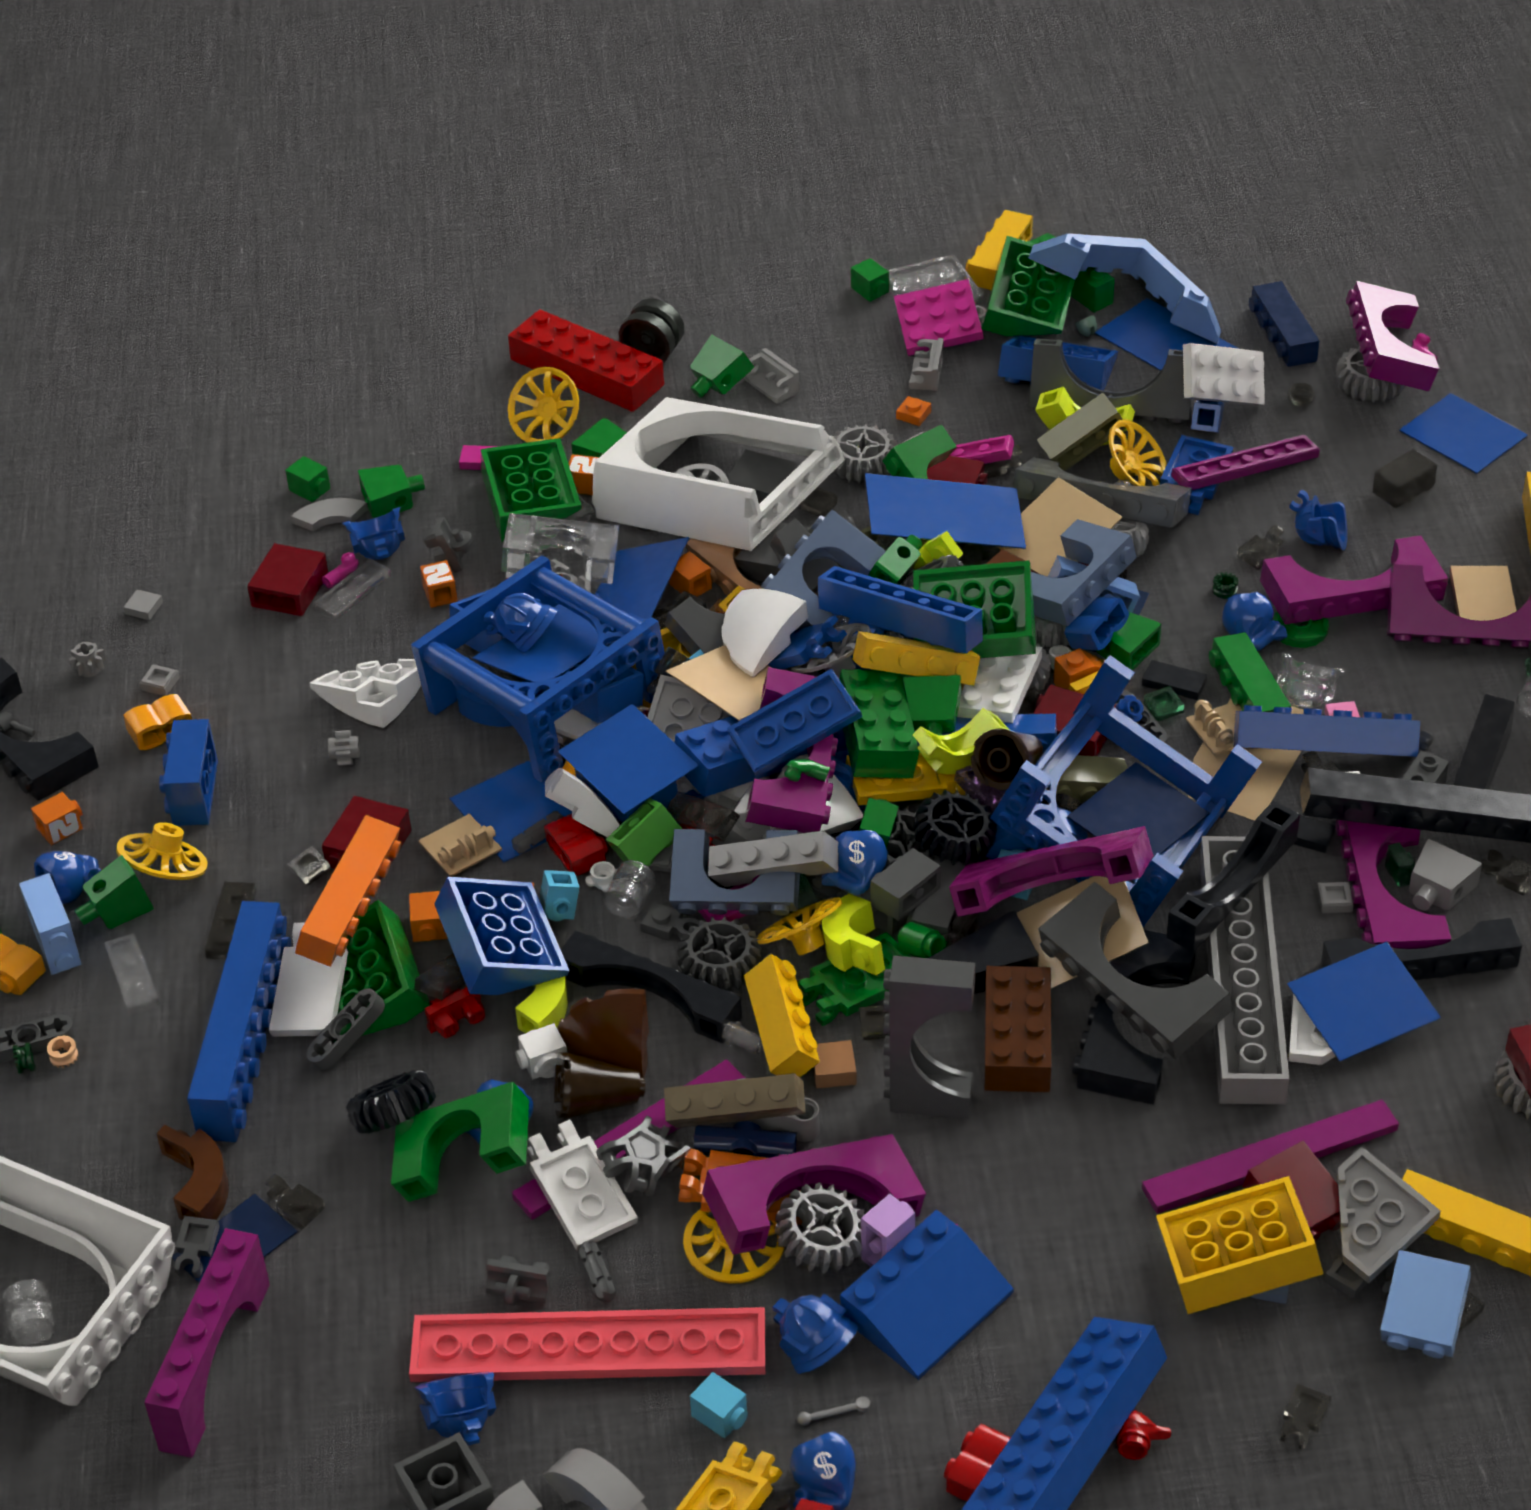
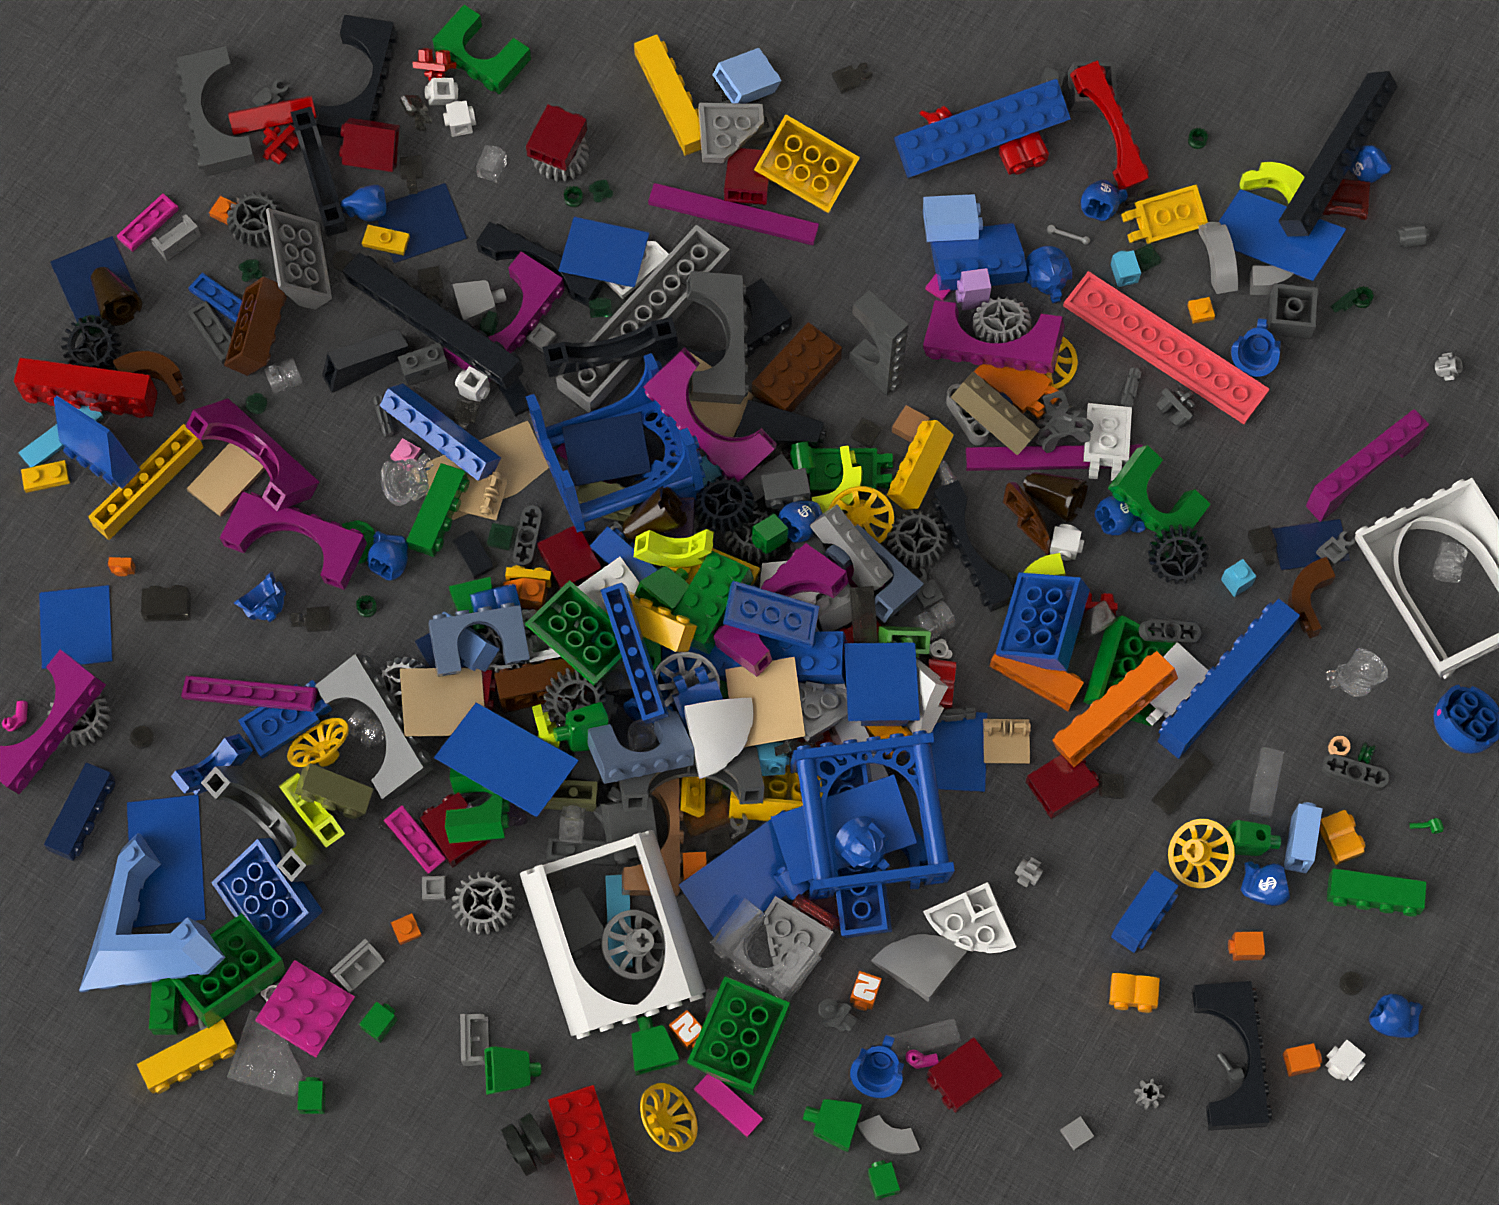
camera: 145 degrees left, 25 degrees up
(75, 1113) = (1359, 674): none -> clear helmet
(159, 680) = (1107, 1043): light grey tile -> none
(300, 1136) = (1238, 578): none -> medium azure brick
(394, 624) = (920, 962): none -> light grey brick
(559, 894) = (980, 643): medium azure brick -> none
(577, 1427) = (1201, 310): none -> light orange plate
(704, 1447) = (1147, 257): none -> clear green plate
(807, 767) = (796, 574): green arm -> none
(867, 343) = (379, 1021): none -> green brick
(997, 1308) = (952, 218): none -> light blue brick
(1087, 326) = (205, 919): sand green hinge -> none
(1131, 701) = (533, 533): blue plate -> none
(1223, 374) = (196, 757): white plate -> none
(1303, 954) = (600, 308): none -> clear green plate
(1449, 1077) = (600, 185): none -> clear green plate
(1468, 1045) = (576, 191): none -> dark green bush
(1482, 480) = (121, 566): none -> orange plate

